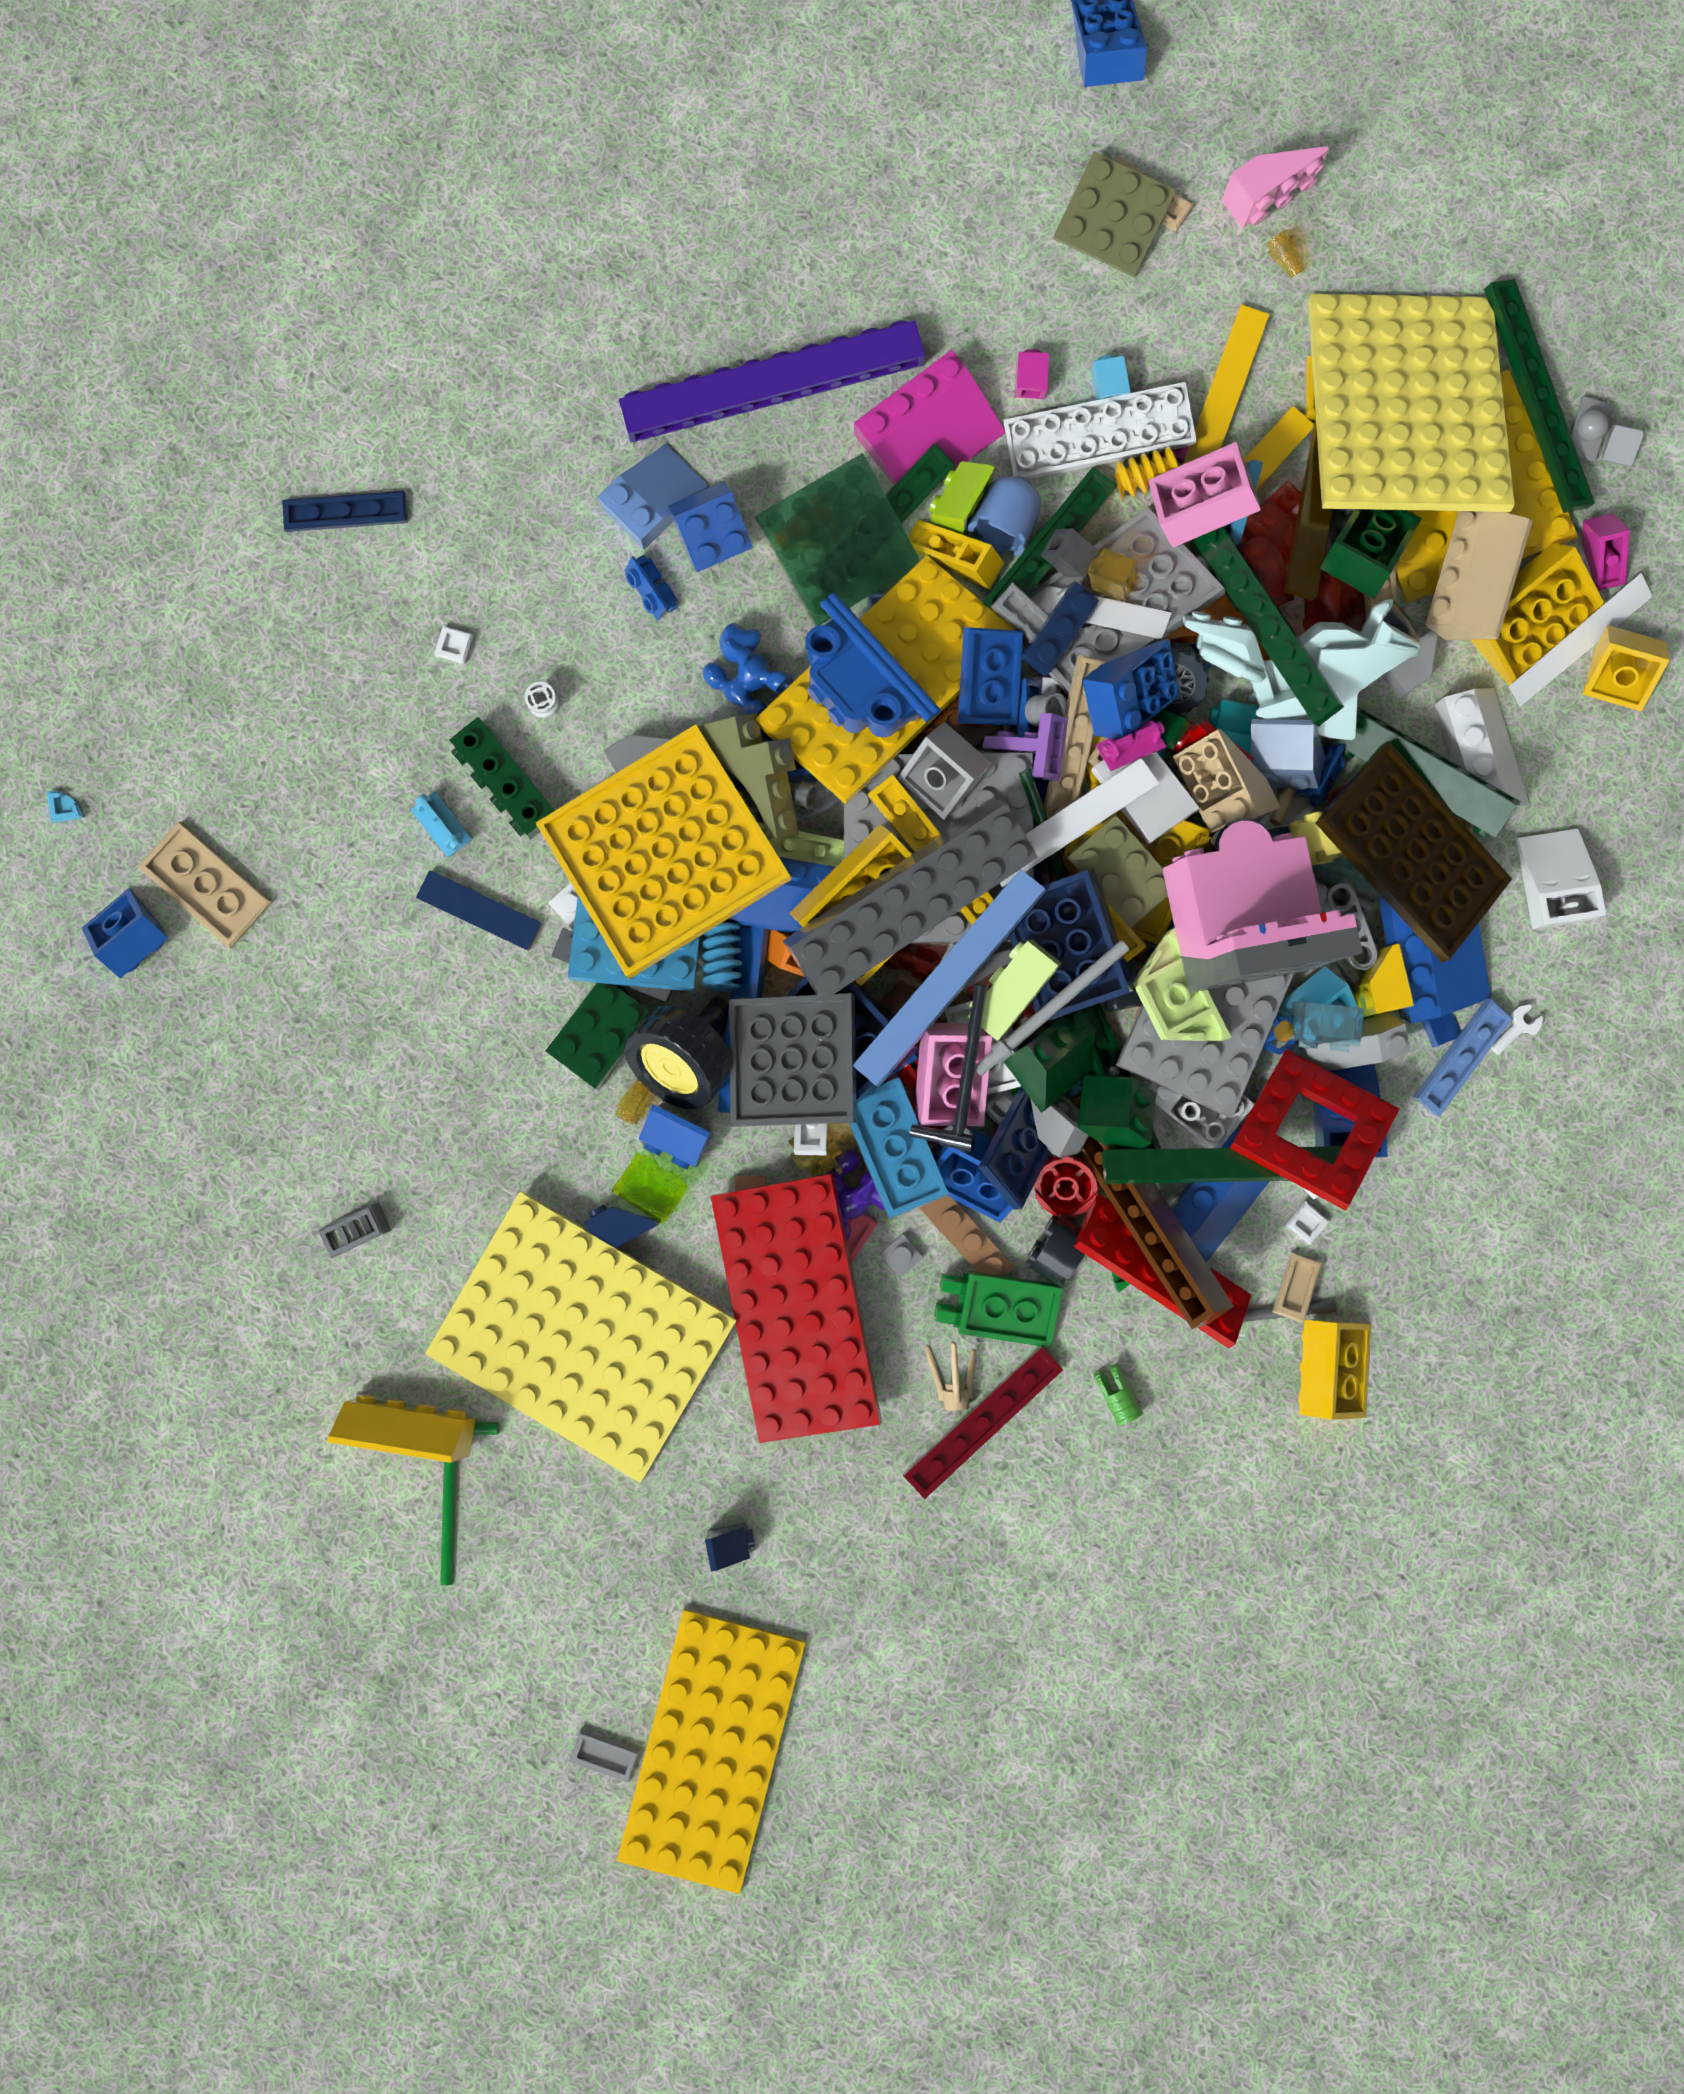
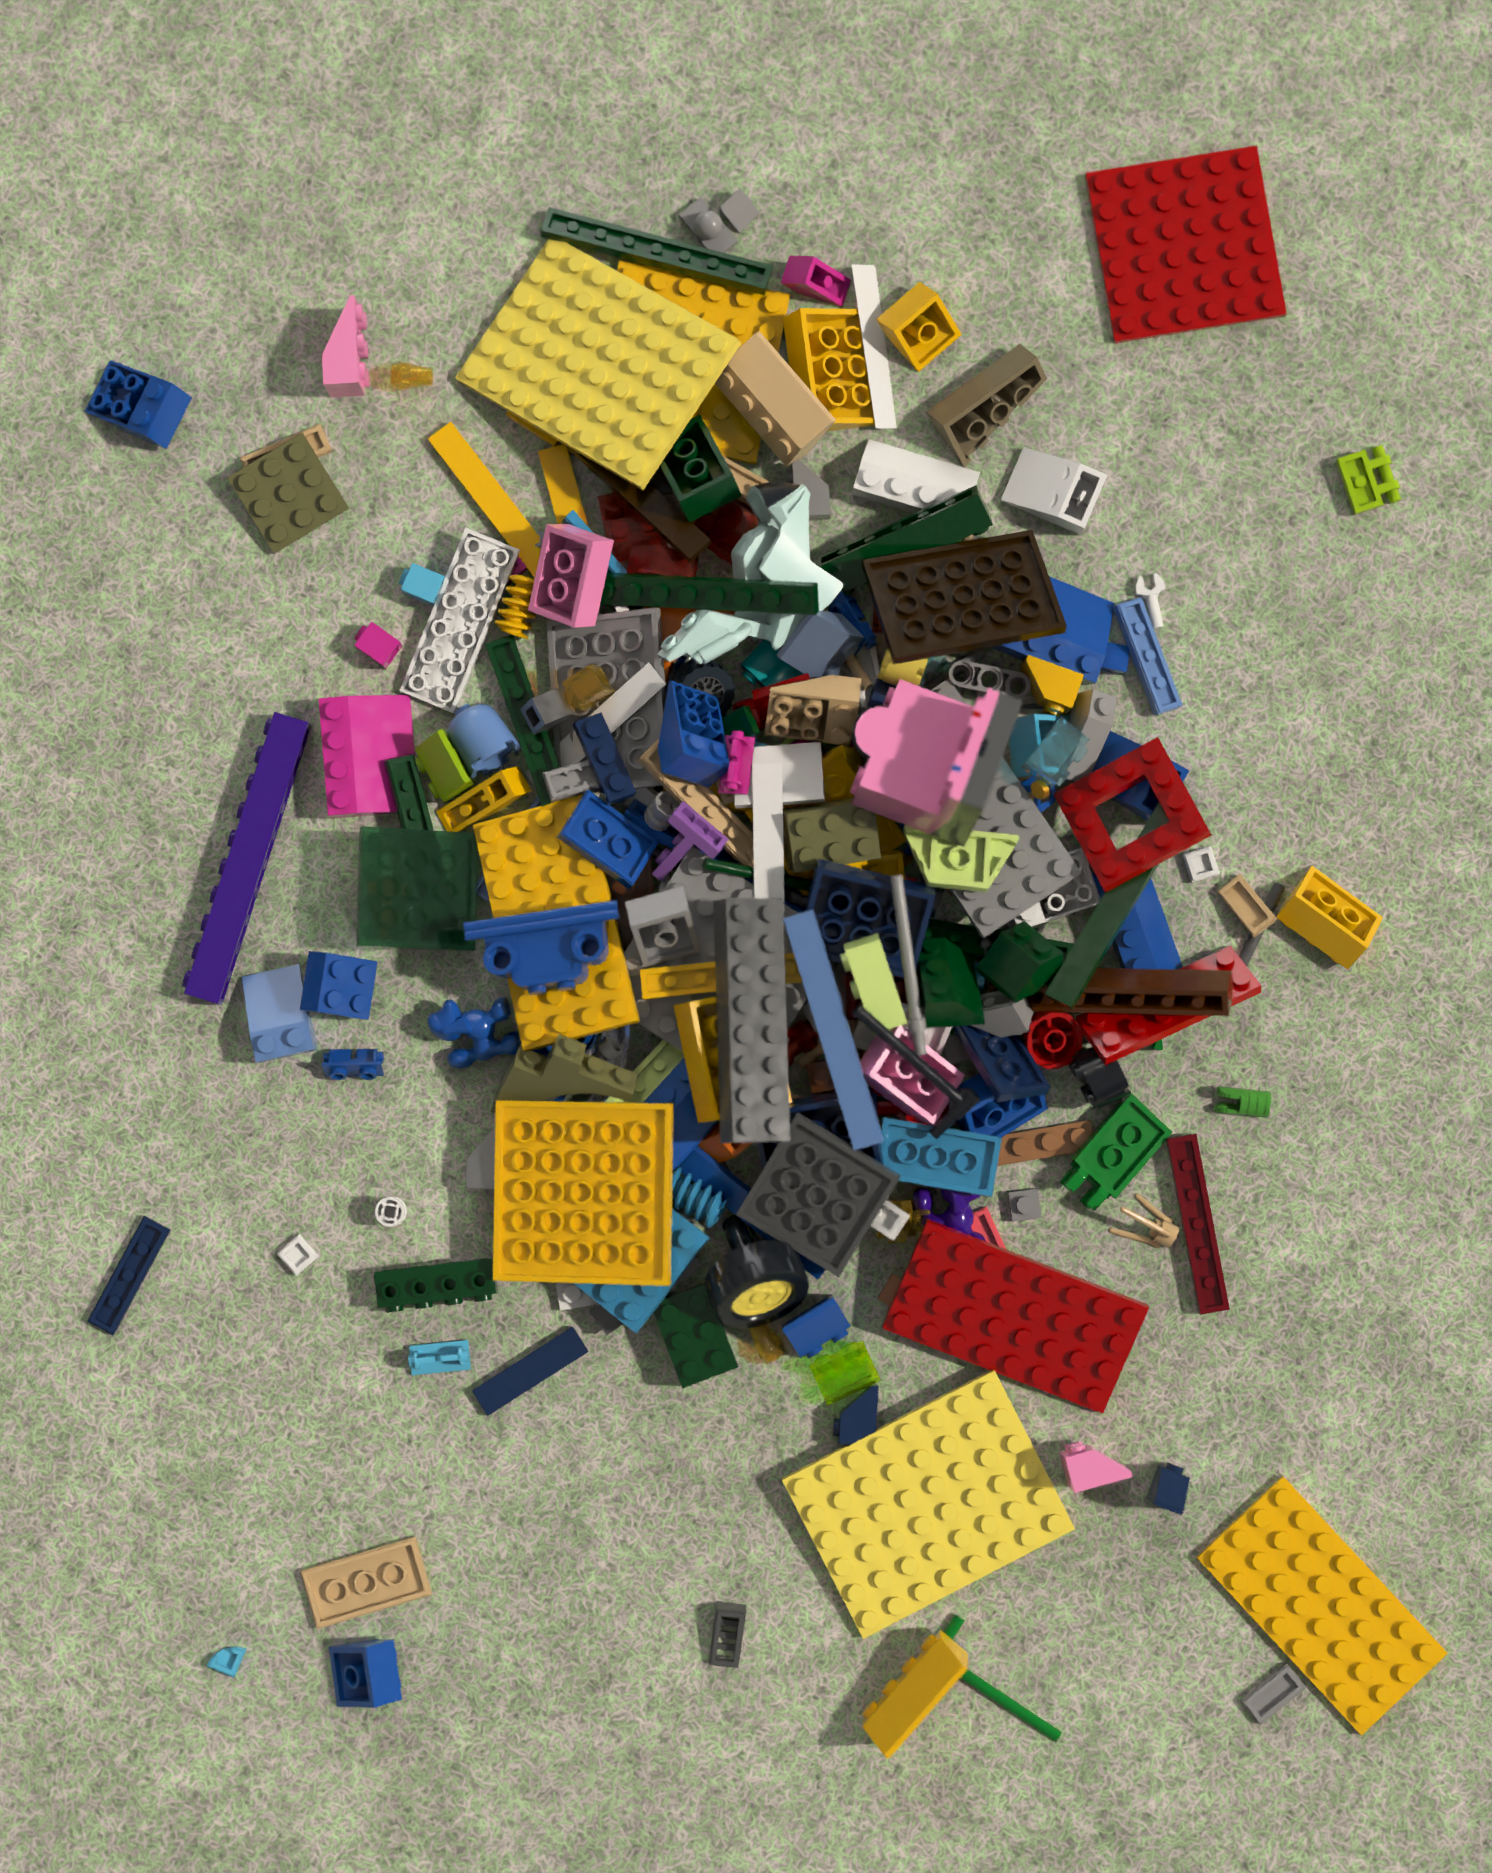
camera: 60 degrees left, 0 degrees up
(703, 1462) = (1090, 1468): none -> bright pink slope
(1597, 768) = (986, 401): none -> dark tan wedge

